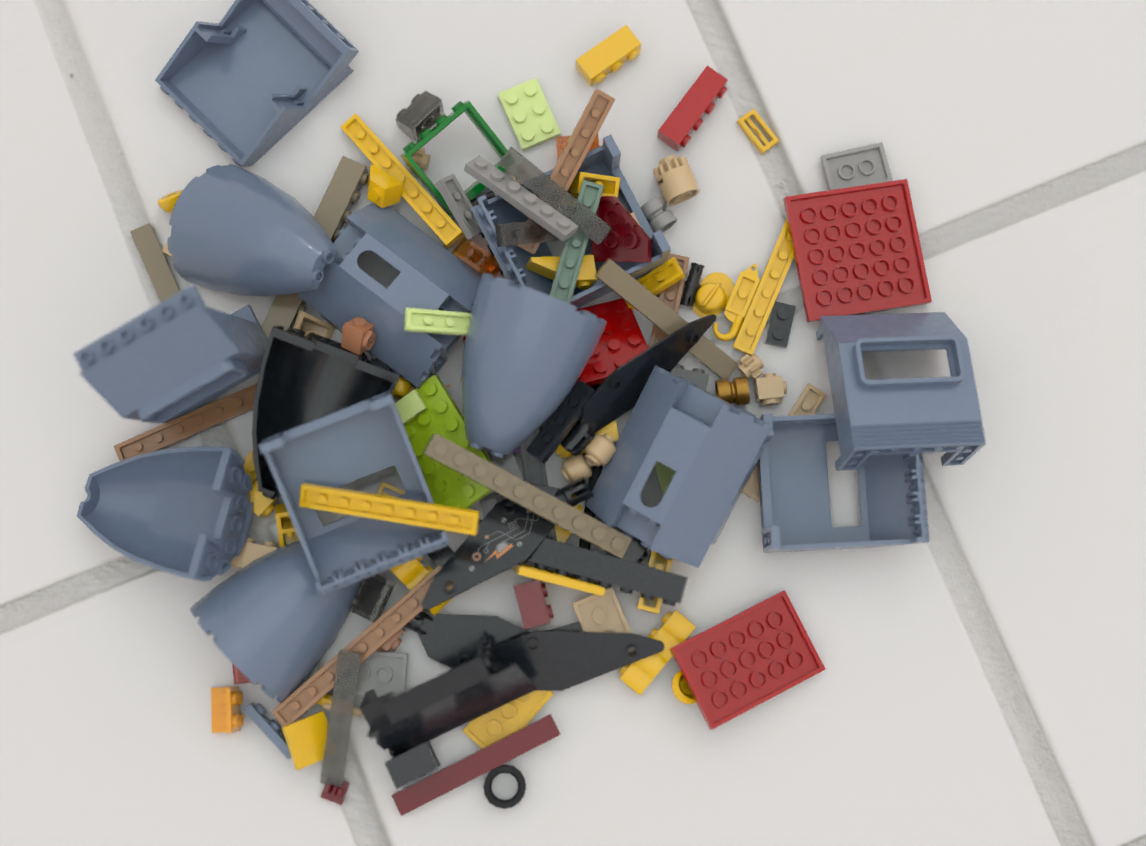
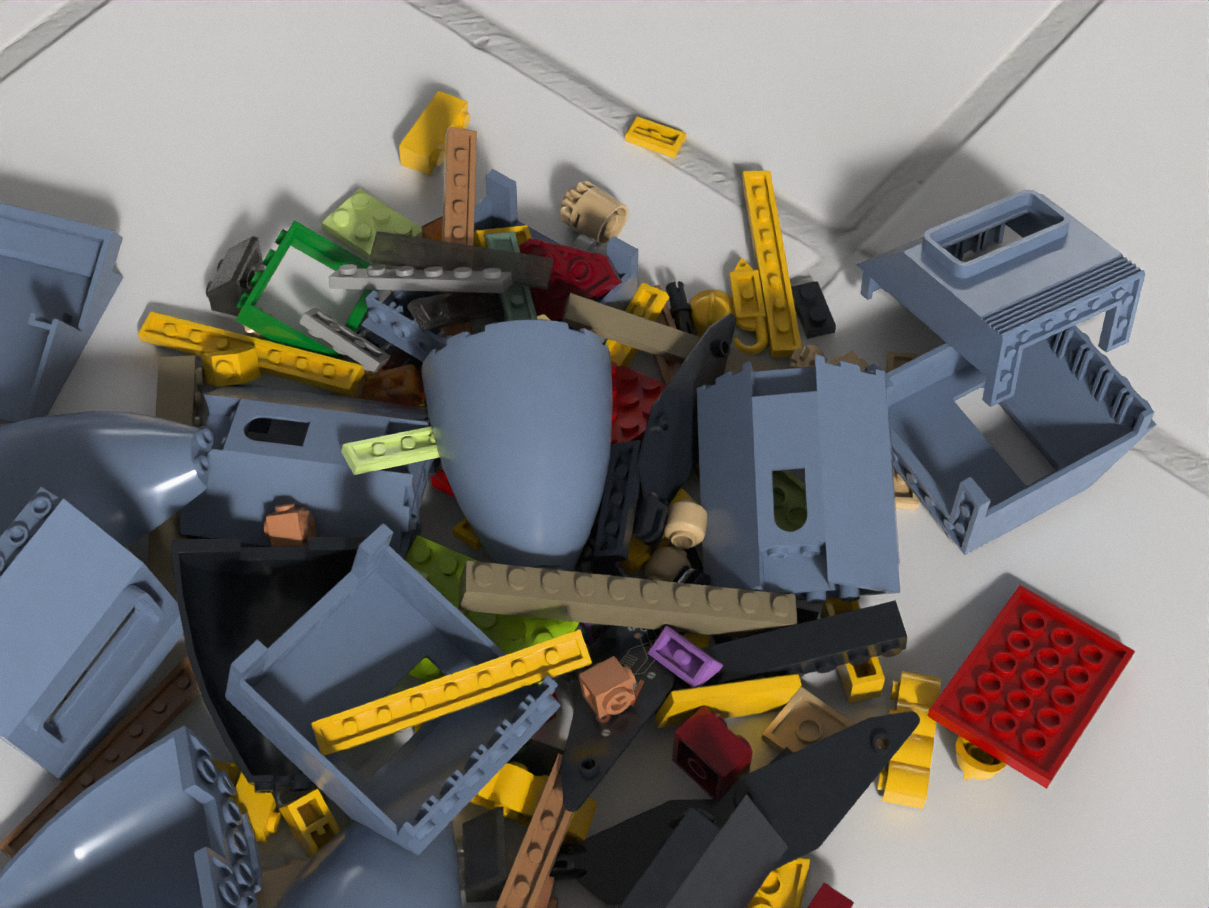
camera: 25 degrees left, 25 degrees down
(488, 542) = (608, 687): none -> nougat brick
(544, 545) = (684, 657): none -> medium lavender slope
(692, 108) = (566, 140): red brick -> none
(856, 167) = (792, 124): light grey plate -> none
(857, 250) = (847, 193): red plate -> none

